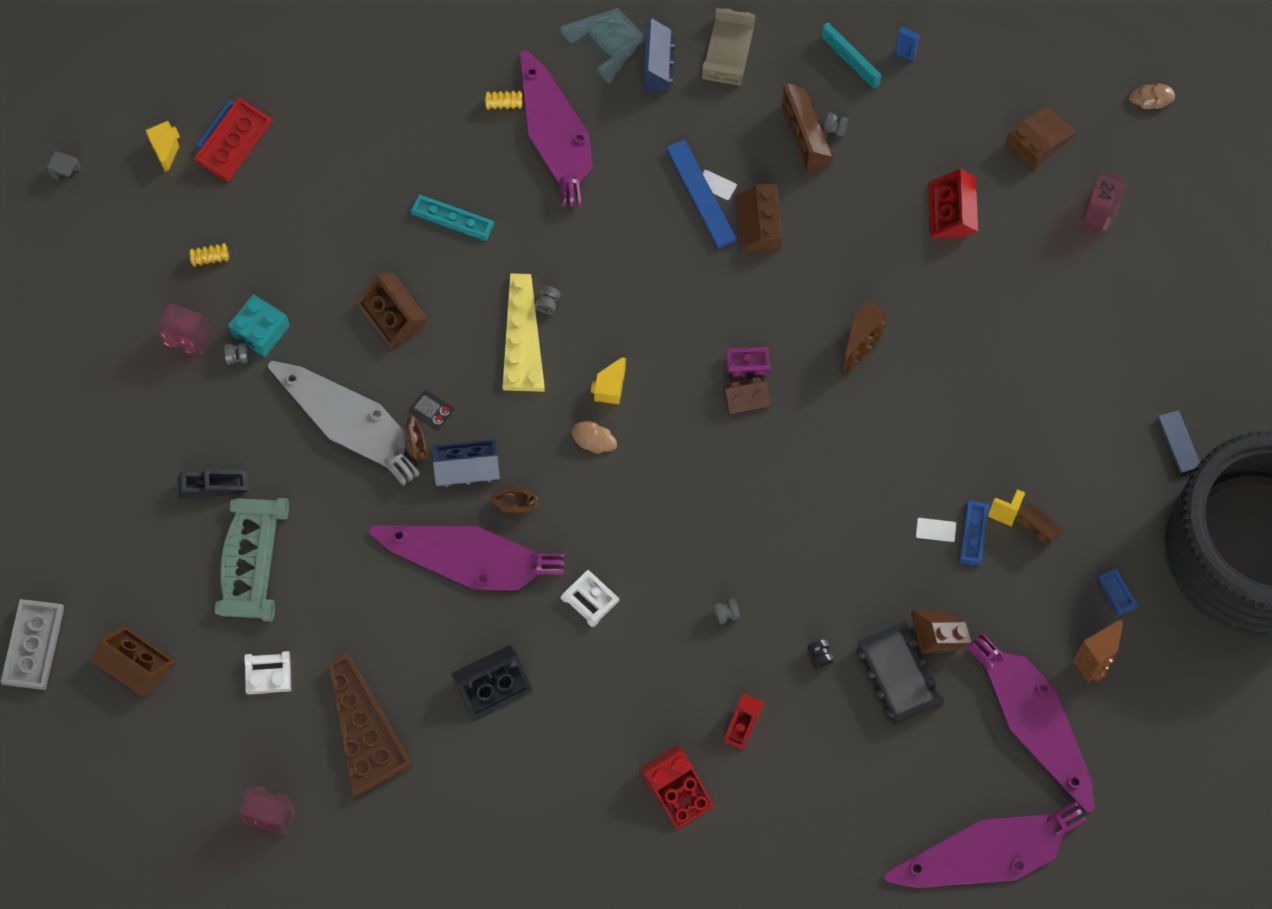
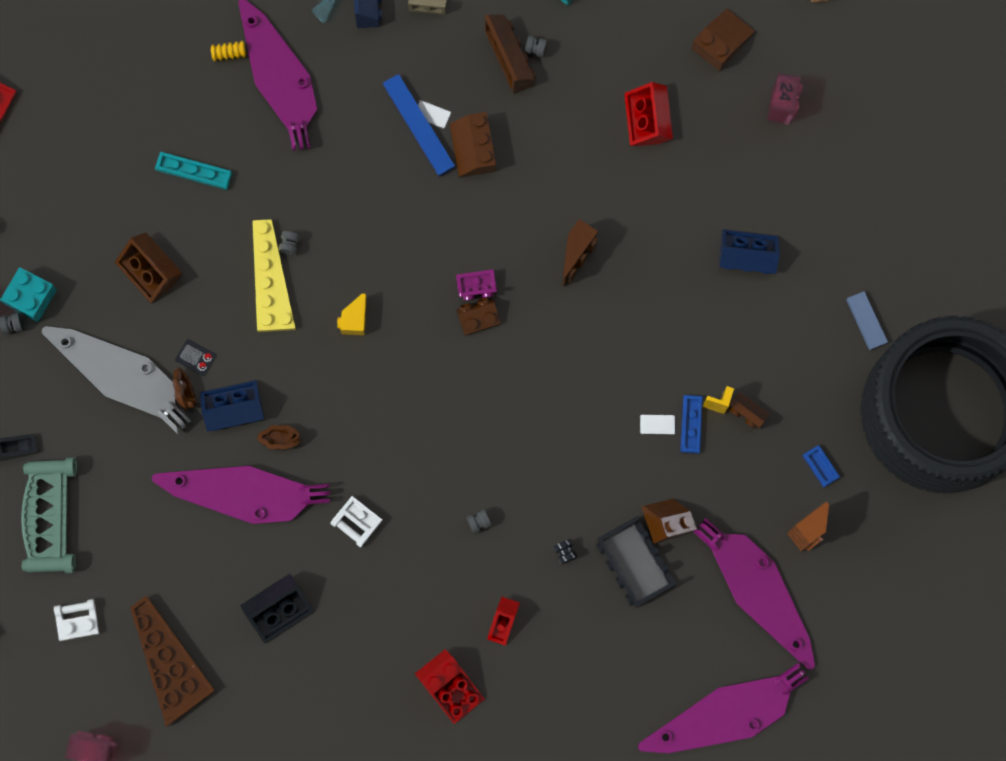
camera: 10 degrees left, 10 degrees up
(593, 437) = (344, 369): medium nougat arm -> none
(1053, 357) = (749, 251): none -> dark blue slope

